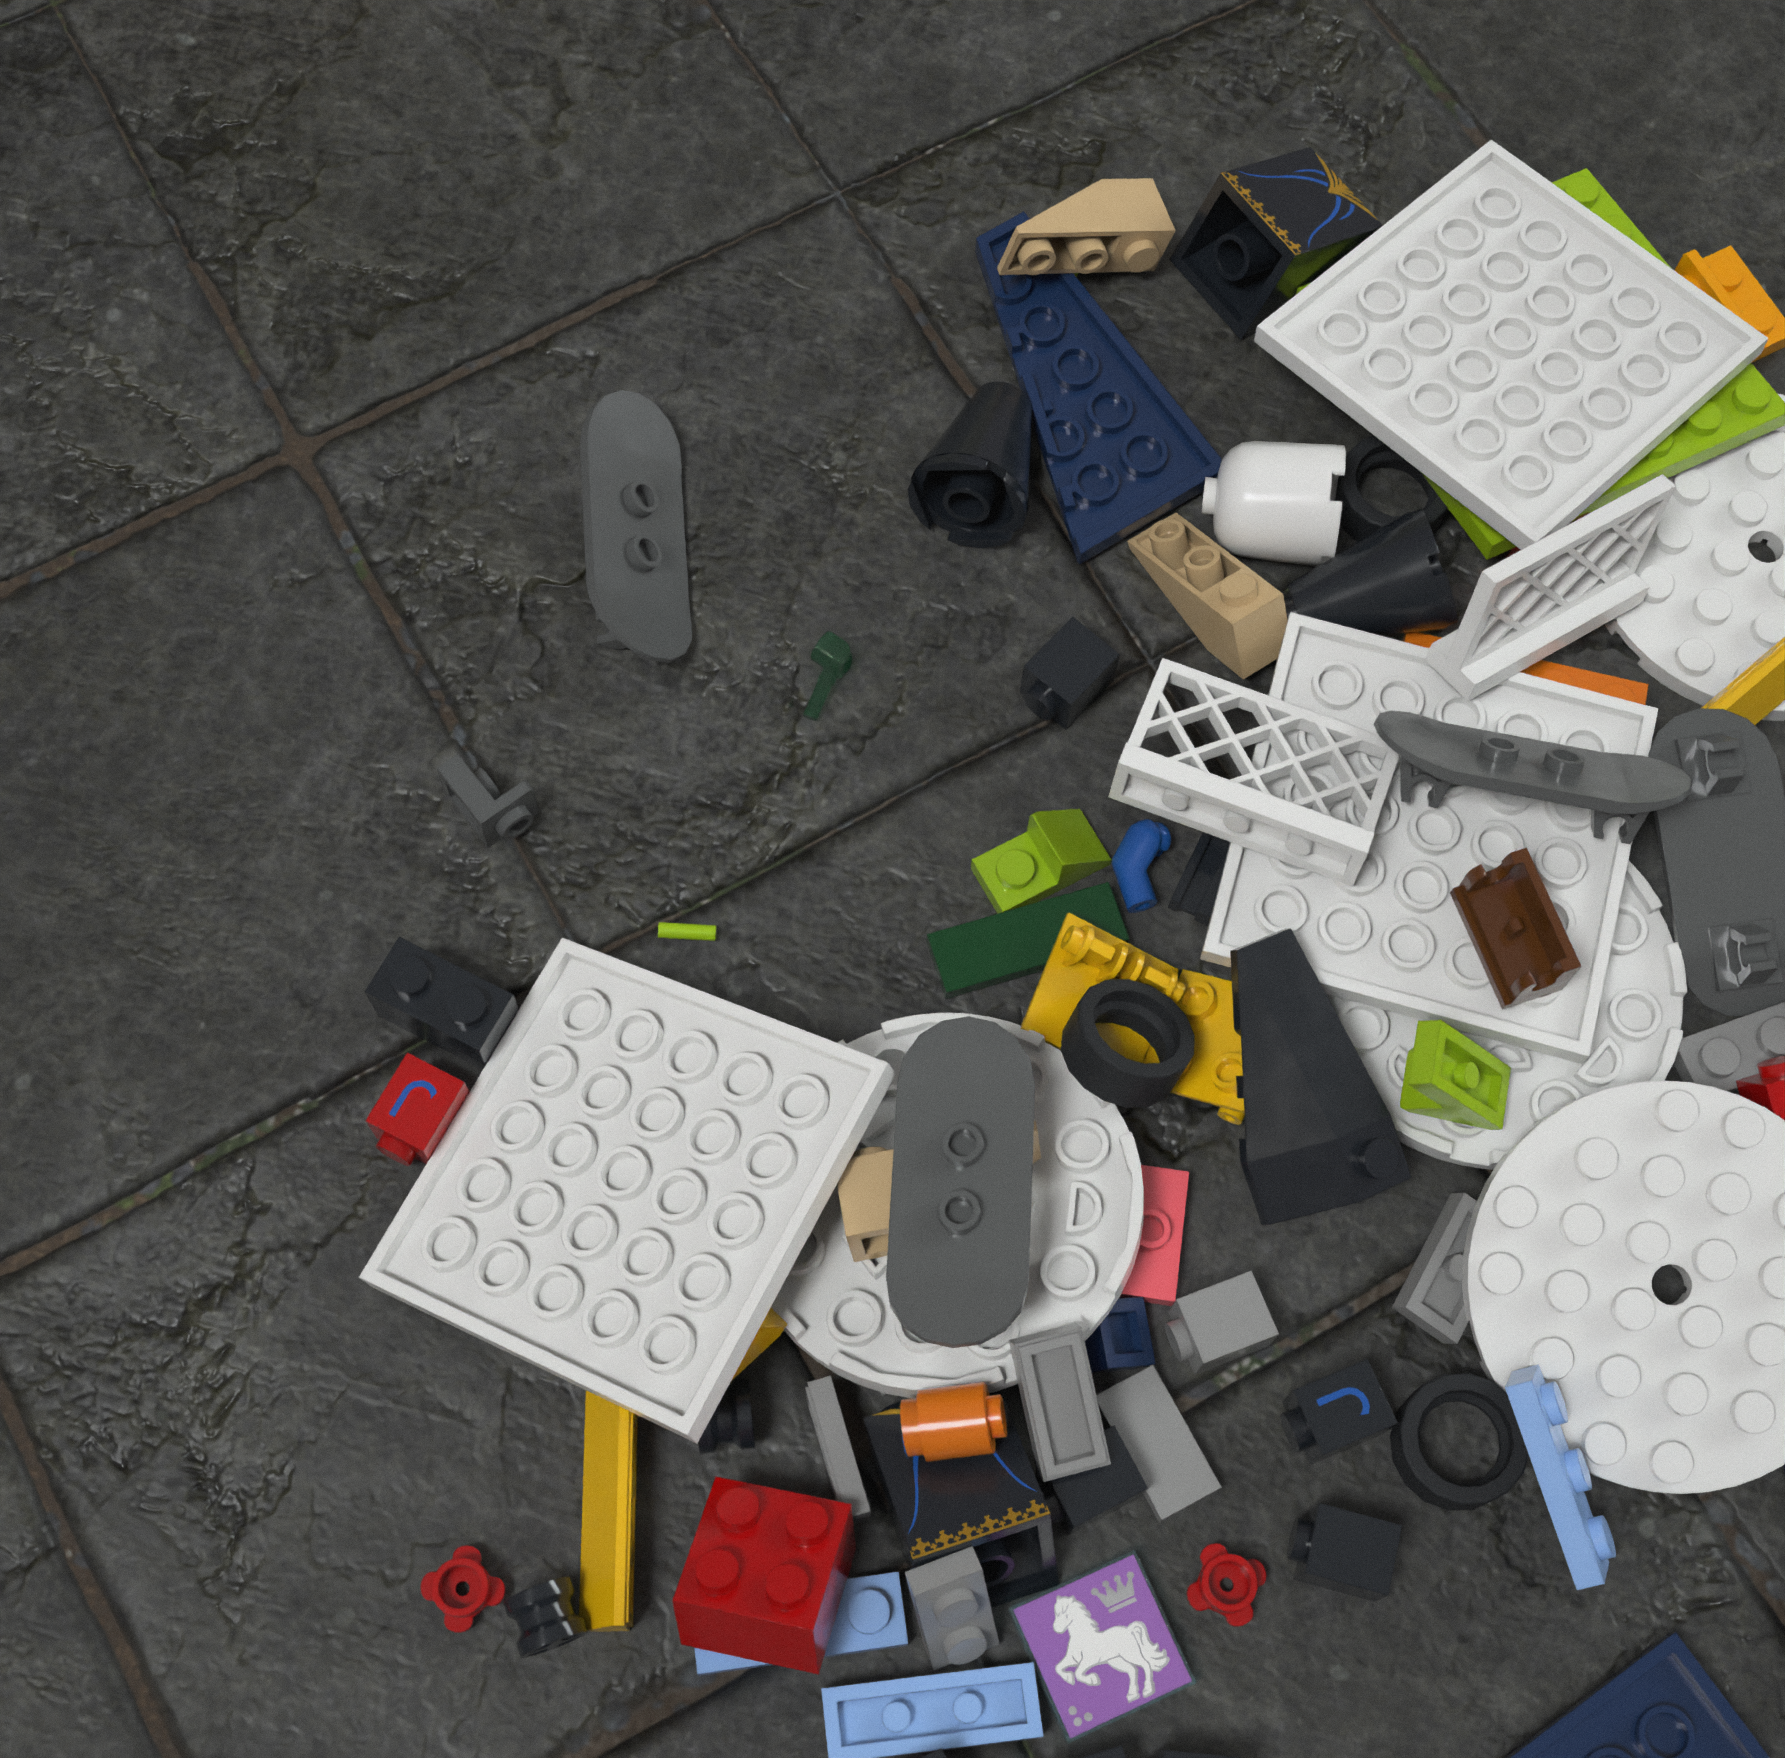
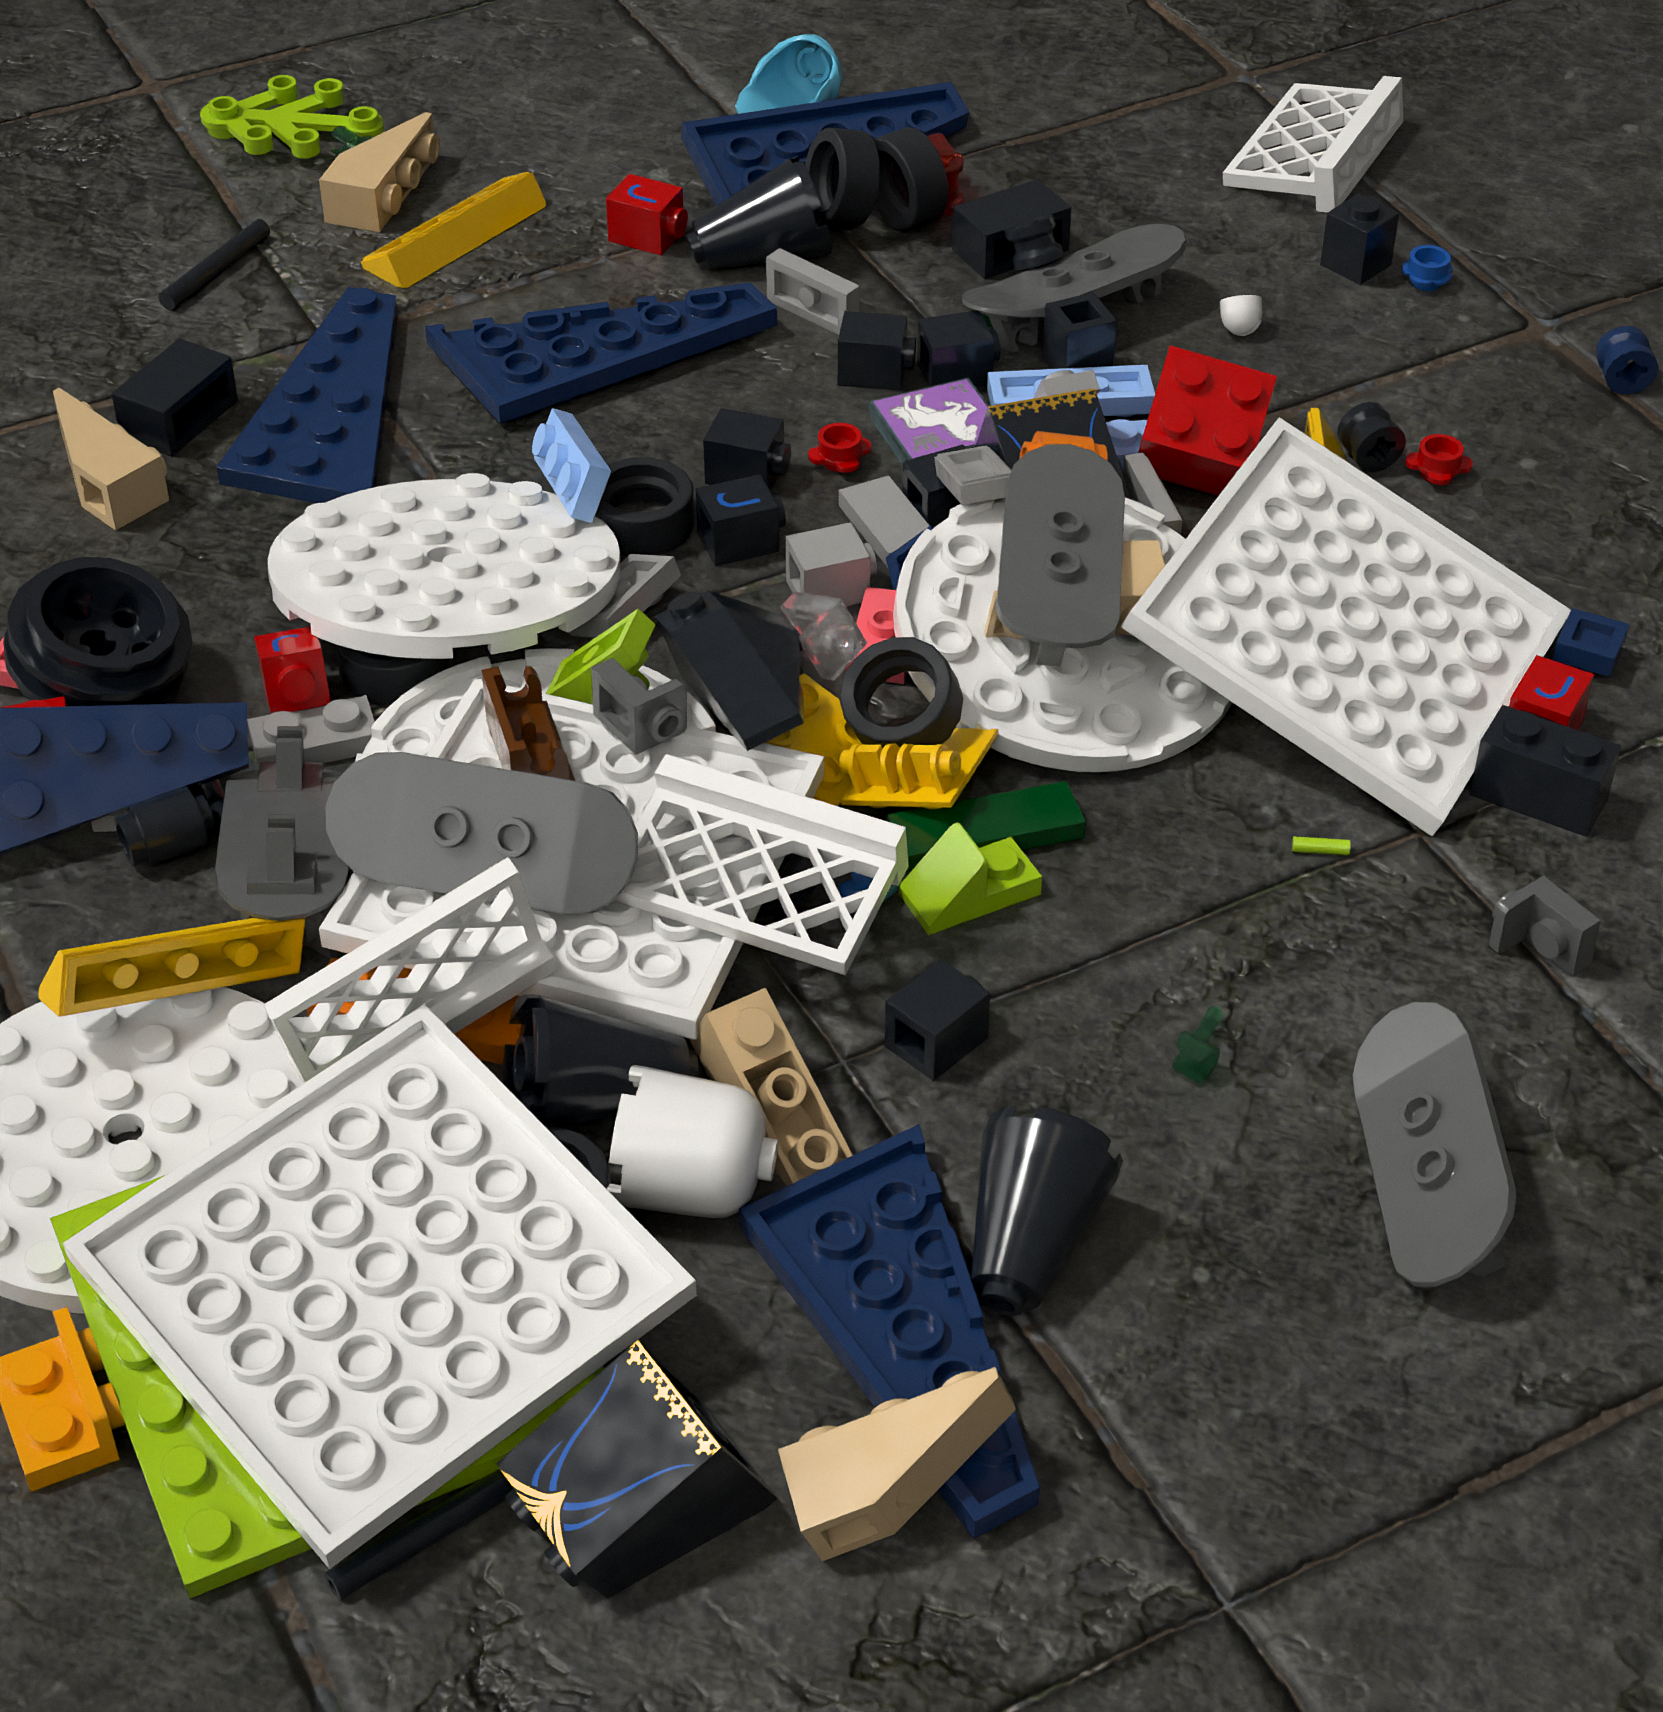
camera: 175 degrees left, 25 degrees down
(345, 1230) = (1591, 642): none -> dark blue plate
(1214, 1194) = (825, 631): none -> clear bracket
(1417, 969) = (633, 712): none -> dark grey bracket

